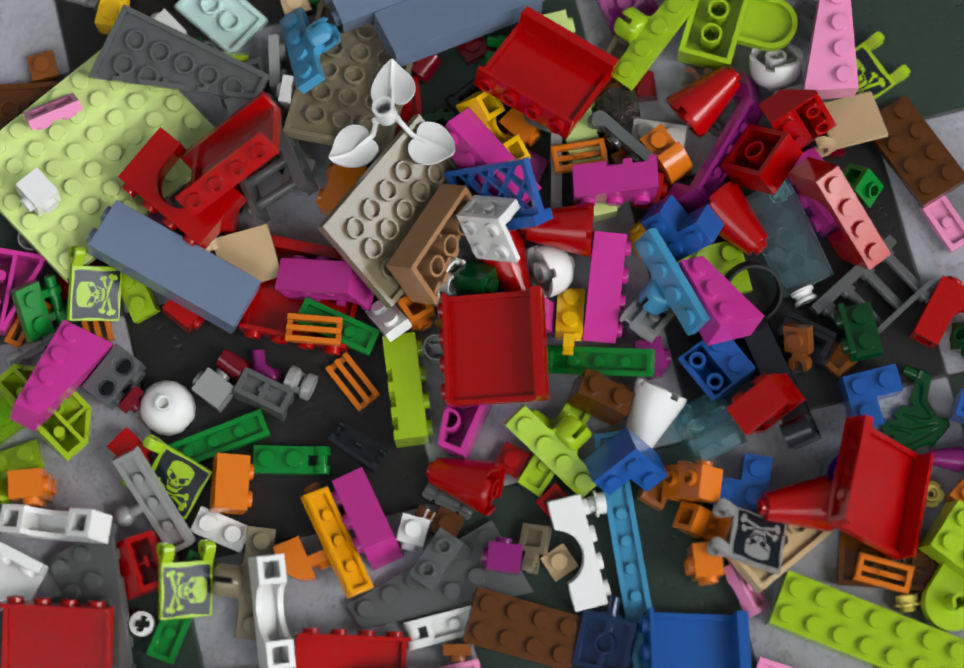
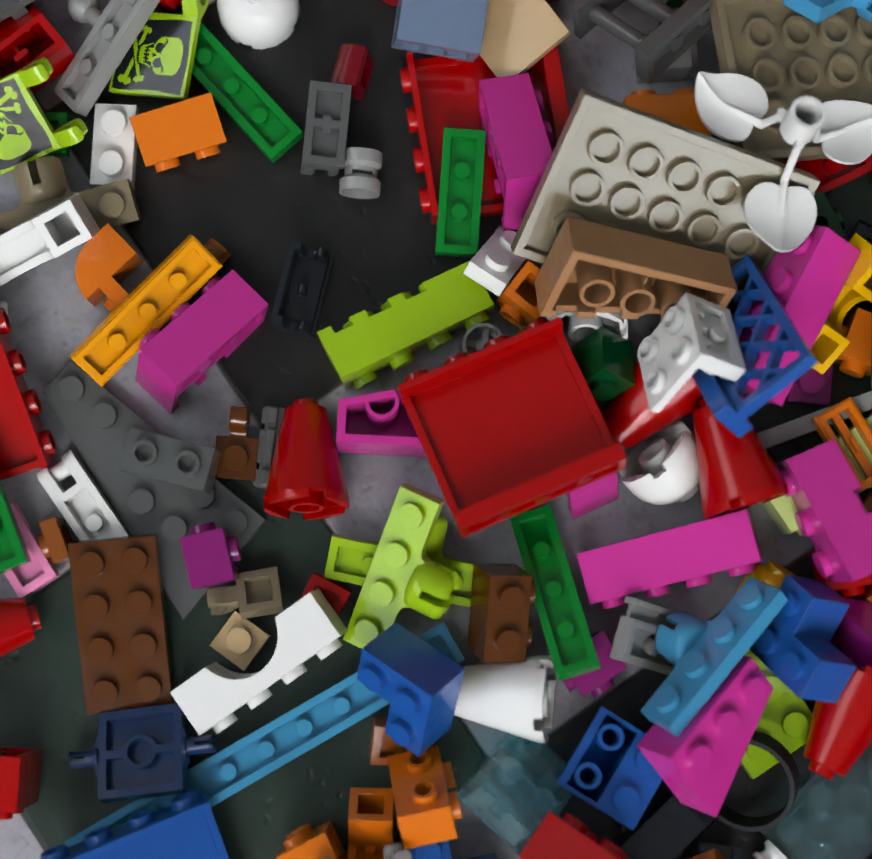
camera: 65 degrees right, 5 degrees up
(213, 388) = (306, 55): light grey brick -> none
(260, 366) = (360, 115): magenta arm -> none
(290, 327) = (431, 125): orange tile -> none
(290, 460) = (247, 203): green plate -> none
(338, 363) = (410, 217): orange tile -> none
(413, 532) = (202, 413): white brick -> none
(514, 460) = (364, 517): red plate -> none
(570, 318) = (602, 523): yellow hinge -> none
(597, 503) = (343, 664): white plate -> none

